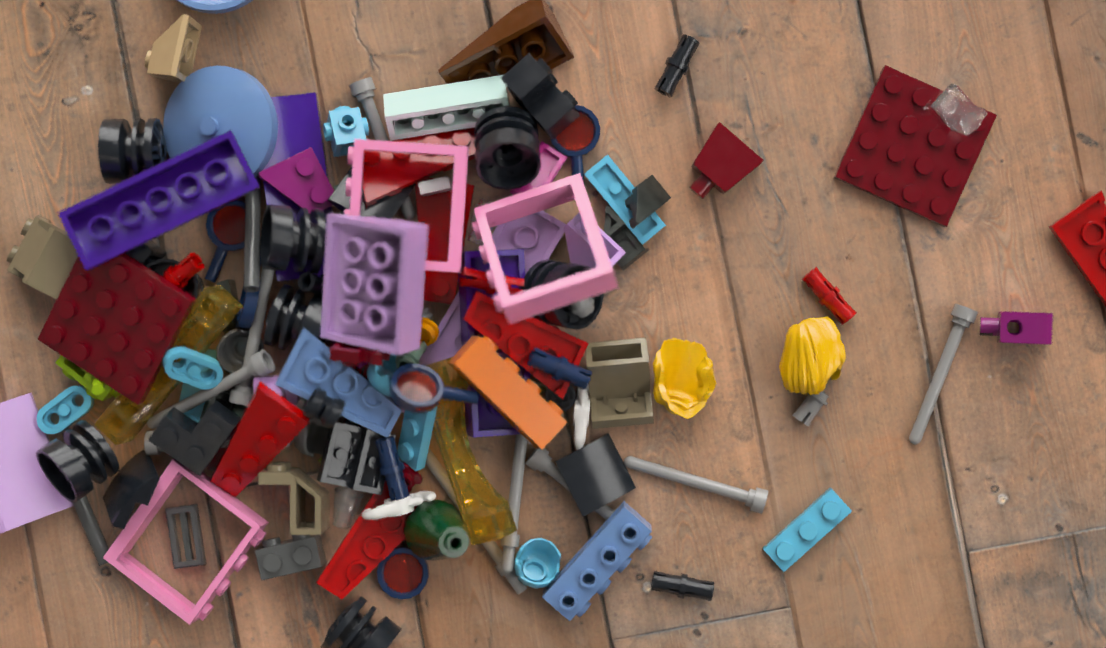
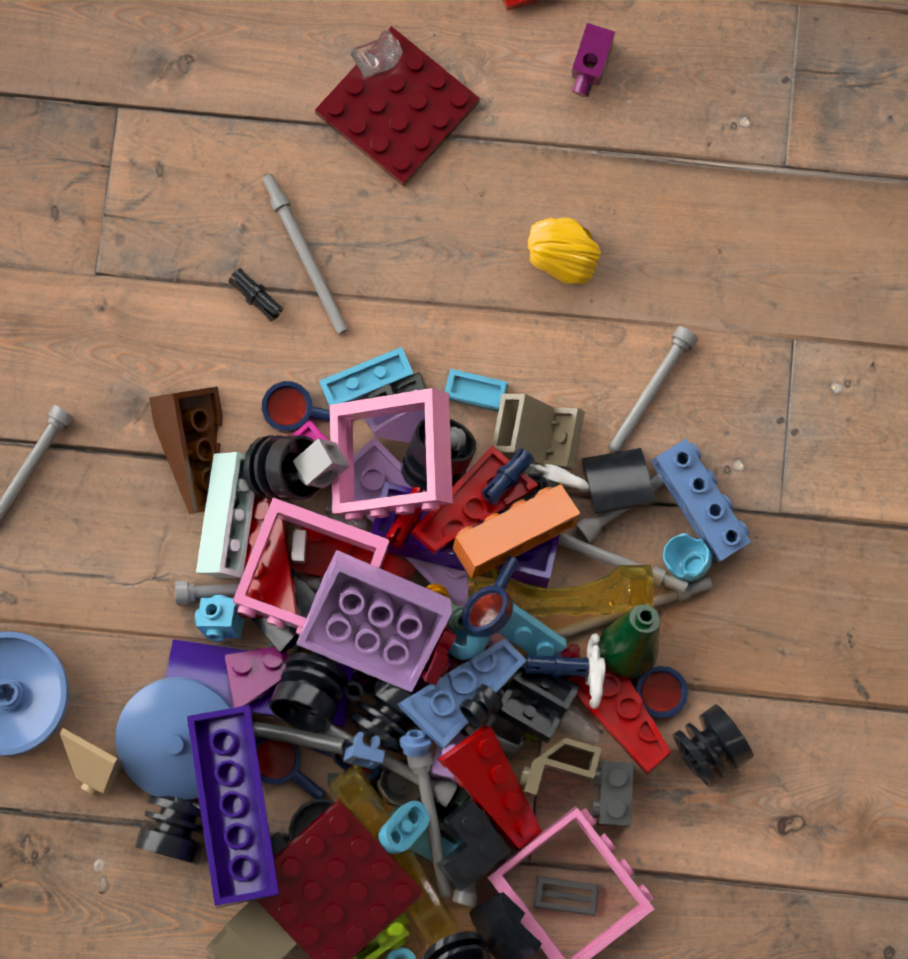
camera: 70 degrees left, 10 degrees down
(184, 270) = (307, 804): red pin -> none
(247, 309) = (364, 755): none -> medium blue tile
(273, 355) = (415, 743): none -> medium blue plate
(516, 182) = (320, 463): none -> light grey brick
(535, 91) = (238, 427): black brick -> none
(645, 200) = (373, 357): pearl dark grey slope -> none
(645, 309) = (475, 390): none -> medium azure tile
(682, 585) = (746, 431): black pin -> none
(683, 377) = (549, 370): yellow hair -> none
(722, 162) = (358, 278): dark red torso -> none
(778, 61) = (281, 205): none -> light grey bar
(807, 529) = (724, 302): medium azure plate -> none
(810, 407) = (611, 266): light grey pin -> none
(829, 295) = (512, 220): red pin -> none
(962, 319) = (568, 108): light grey piece -> none

